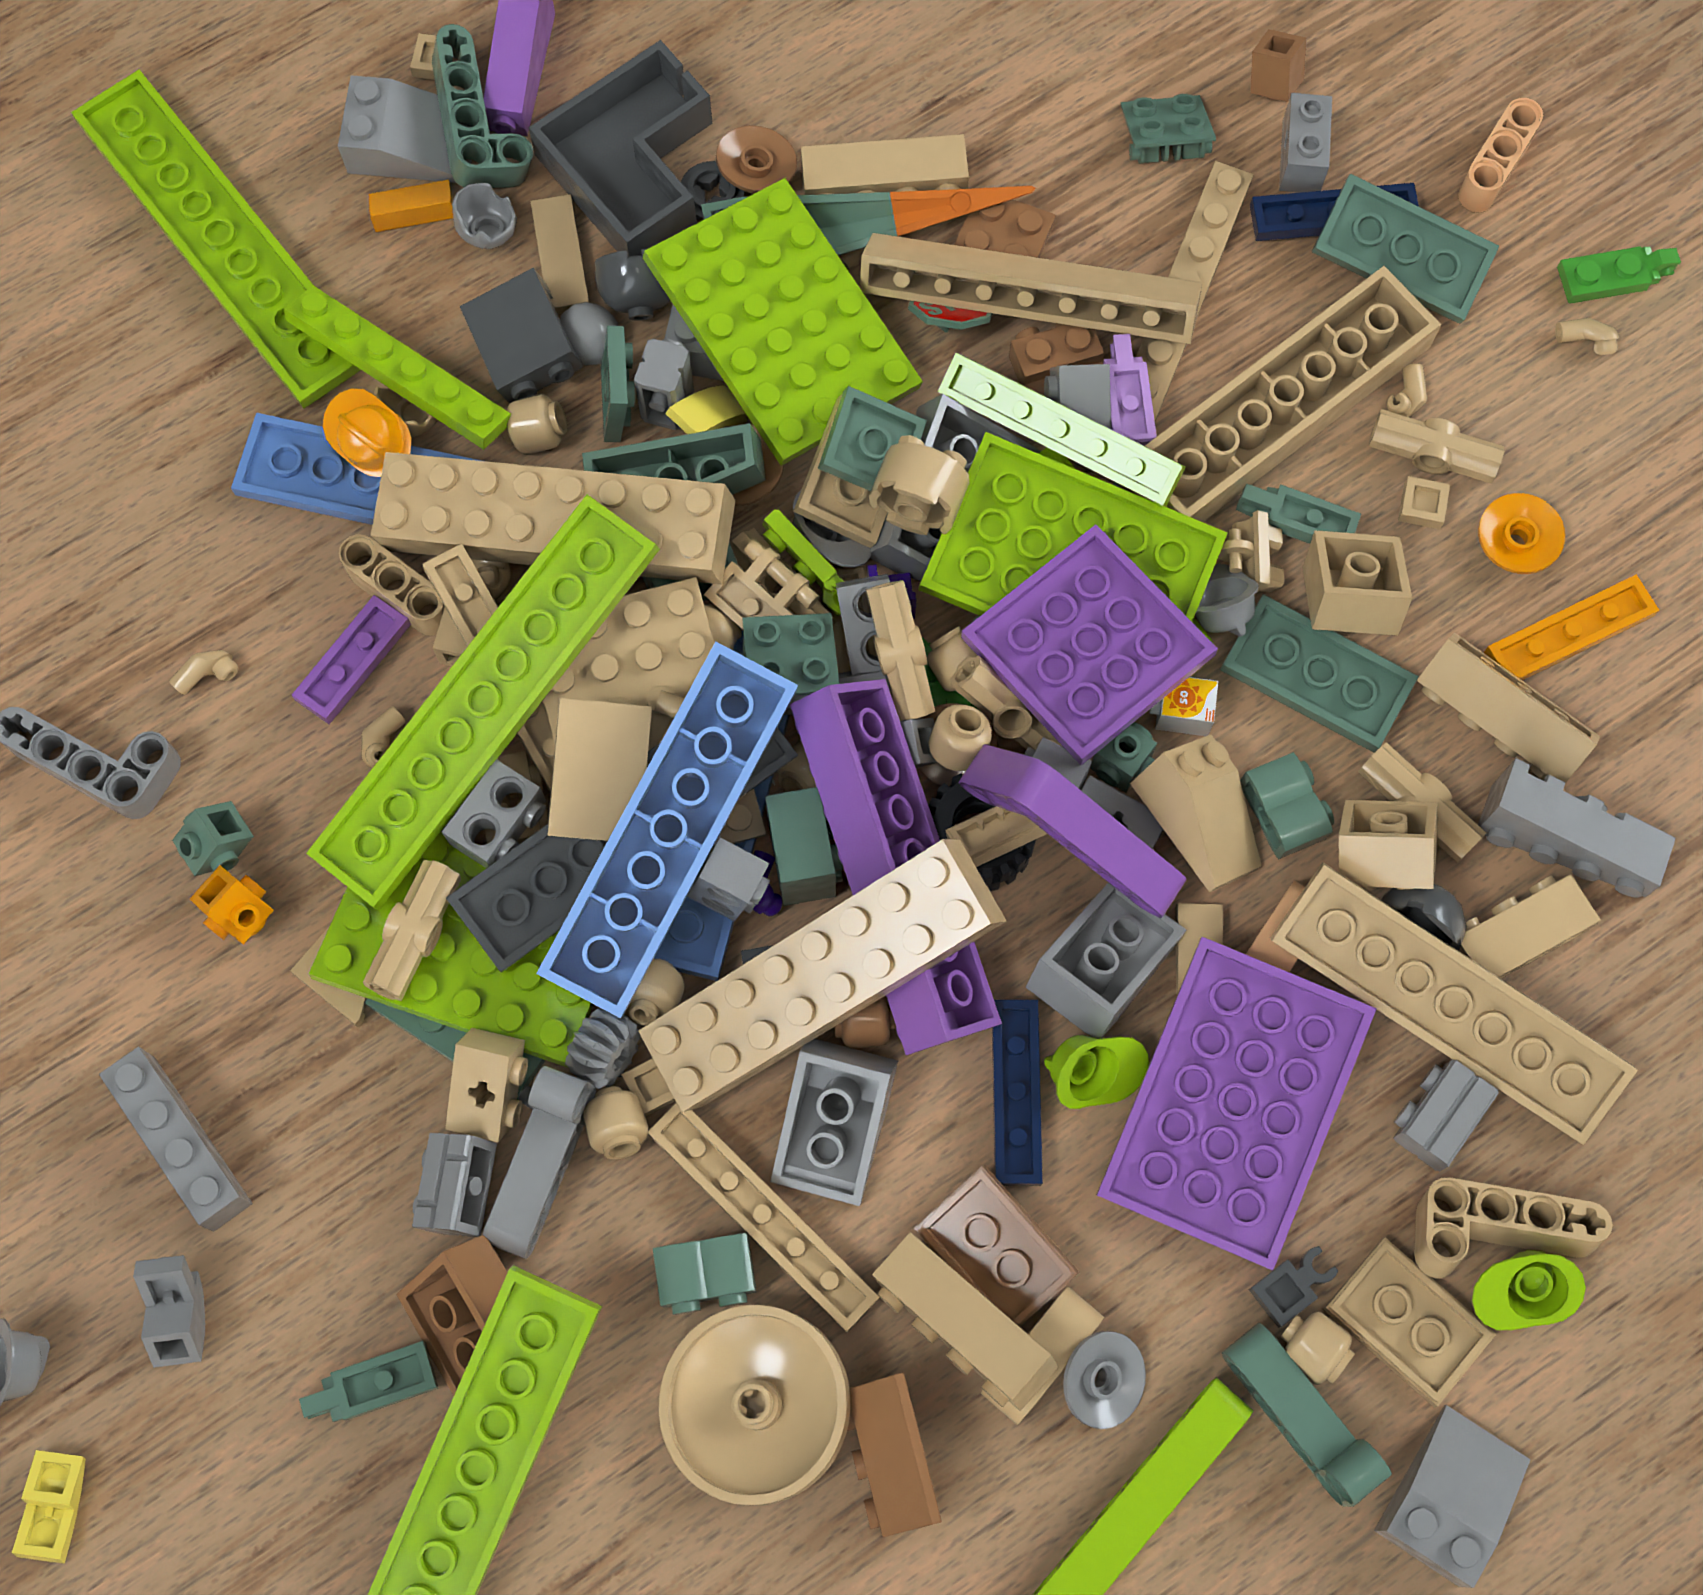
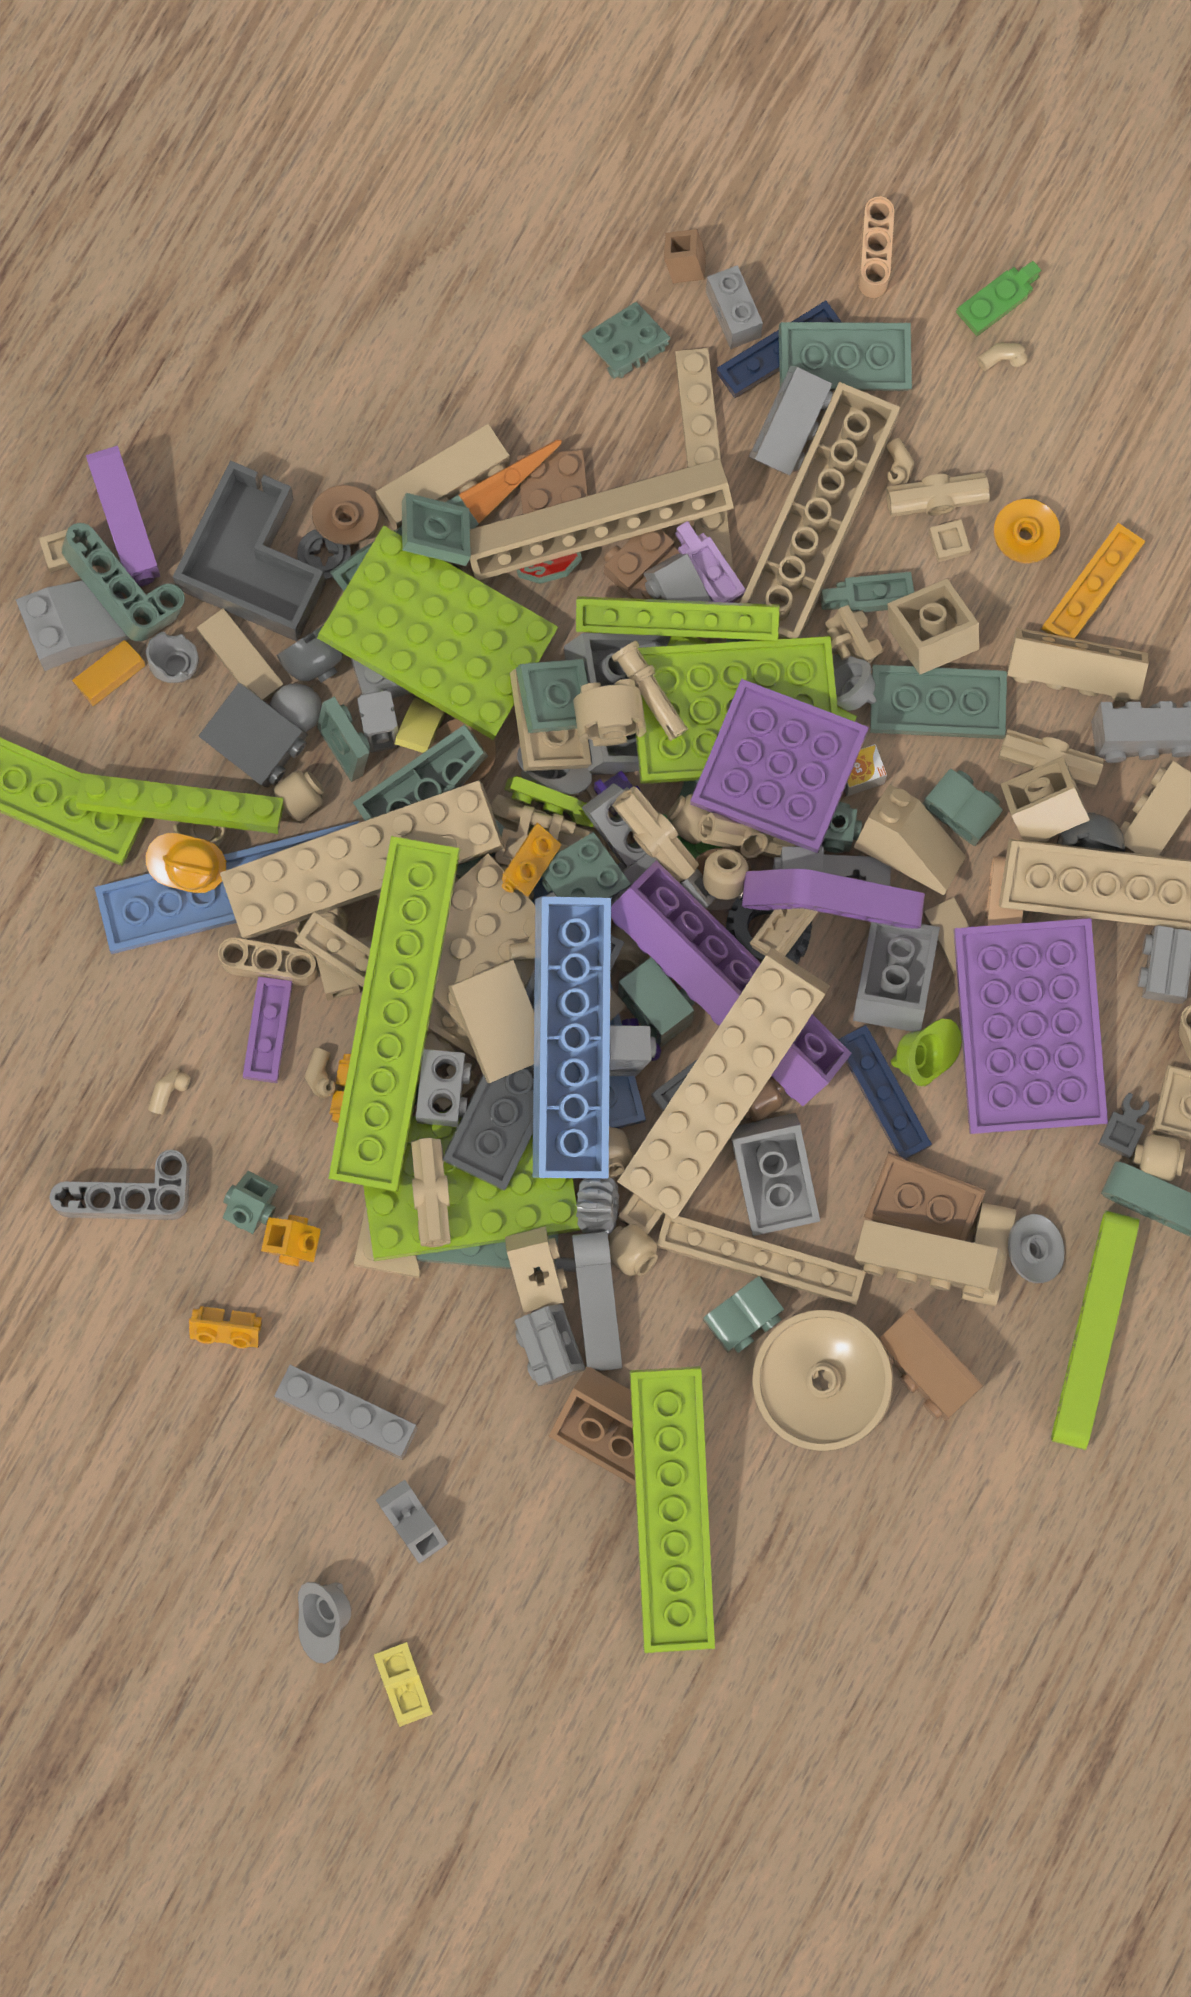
camera: 30 degrees left, 5 degrees up
(88, 957) = (208, 1327): none -> light orange hinge
(373, 1384) = (569, 1498): sand green hinge -> none
(737, 606) = (530, 861): none -> light orange hinge
(840, 208) = (436, 529): none -> sand green plate
(981, 467) = (643, 675): none -> tan pin
(1308, 284) = (791, 420): none -> light grey brick

